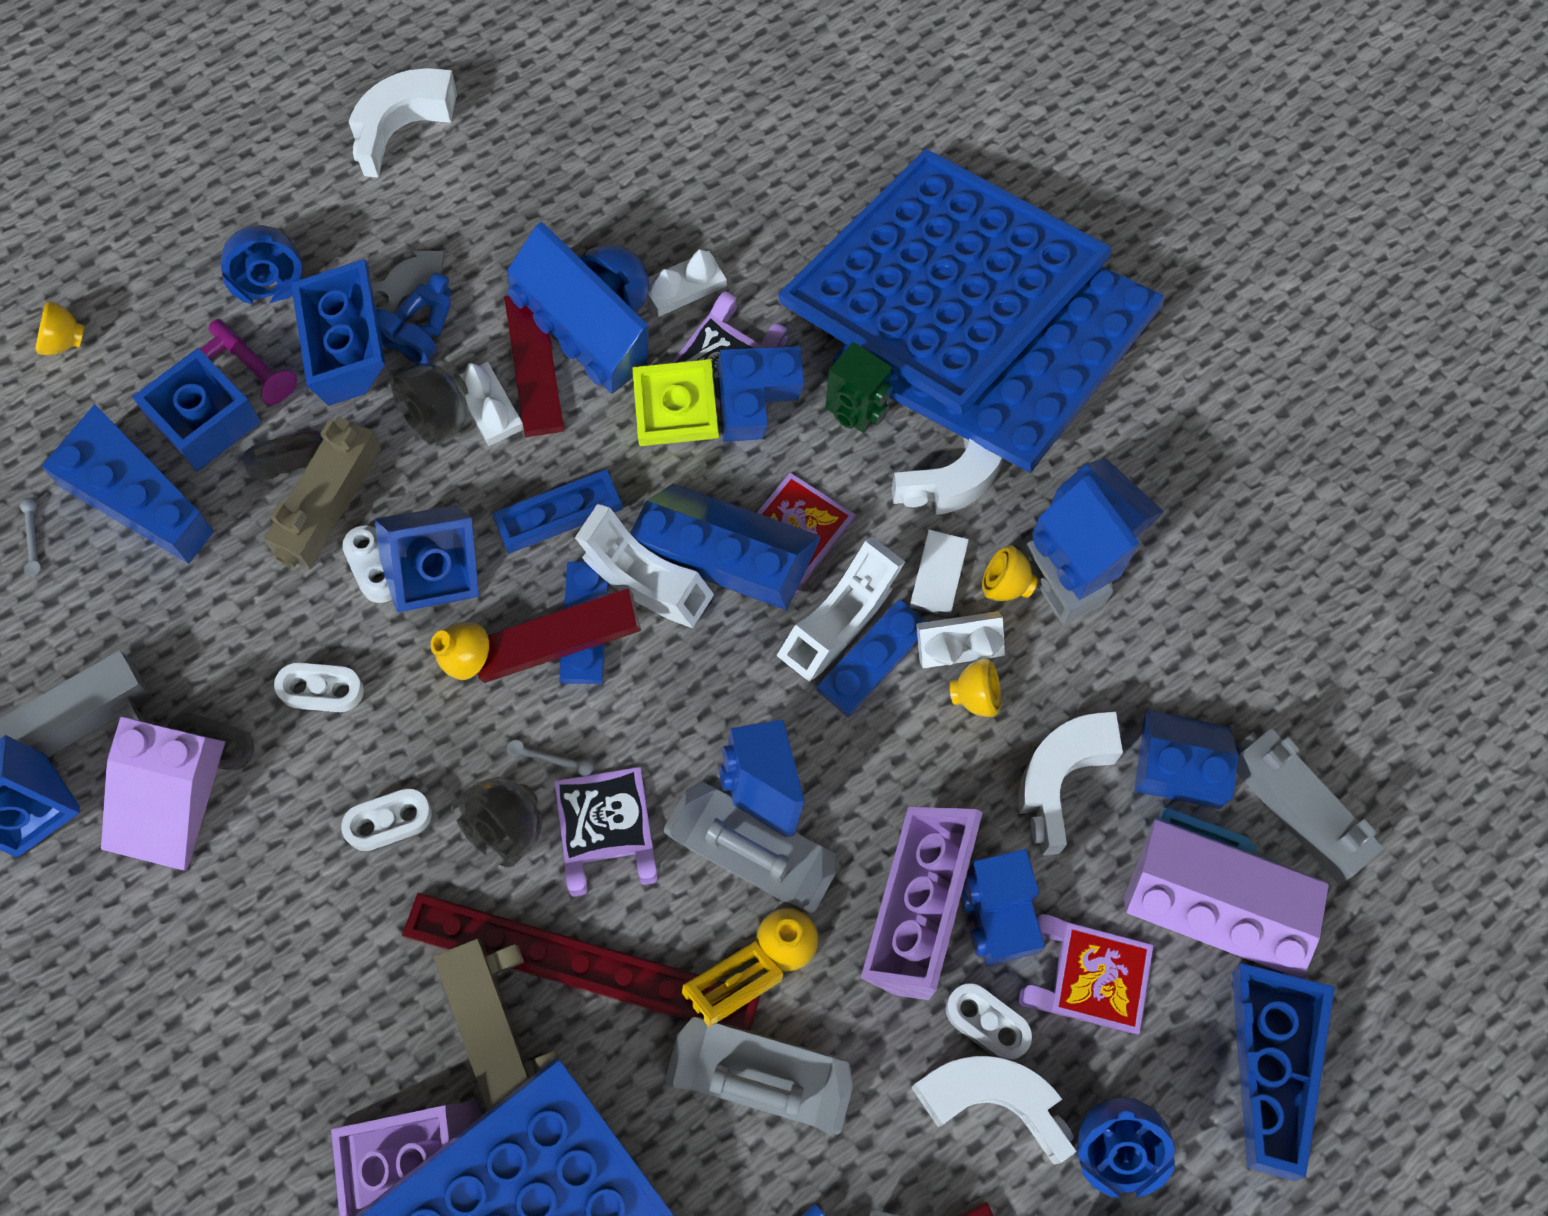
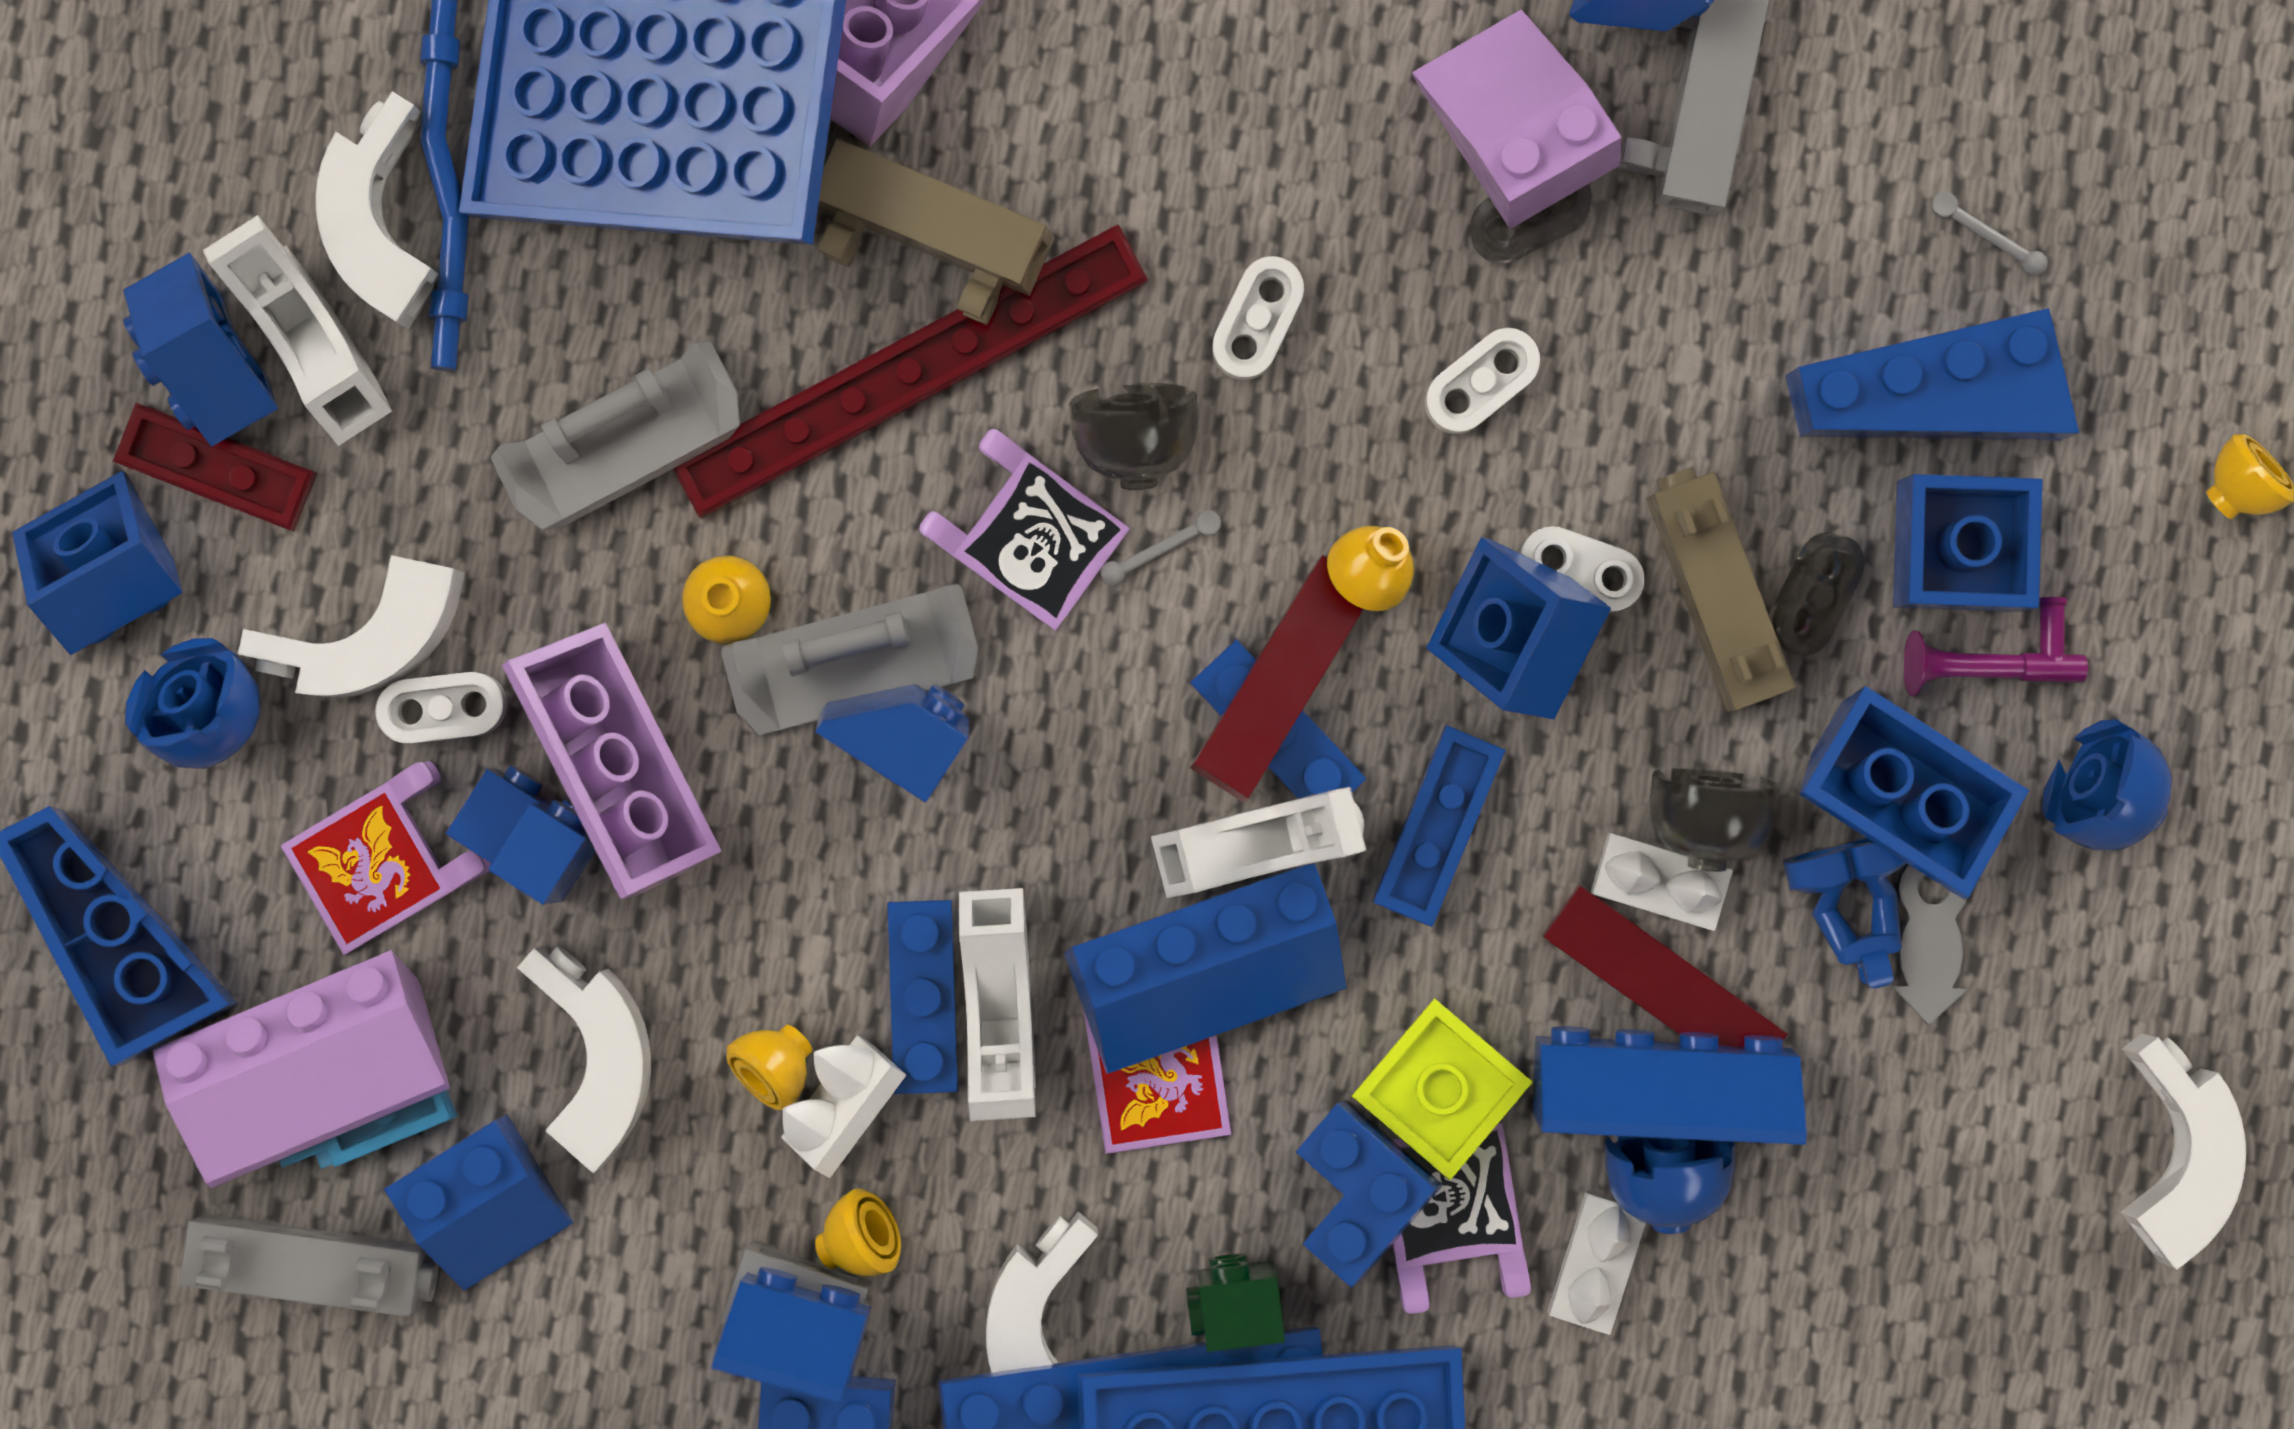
camera: 135 degrees right, 20 degrees up
(703, 1003) = (741, 445): yellow tile -> none
(939, 573) = (944, 1169): white tile -> none

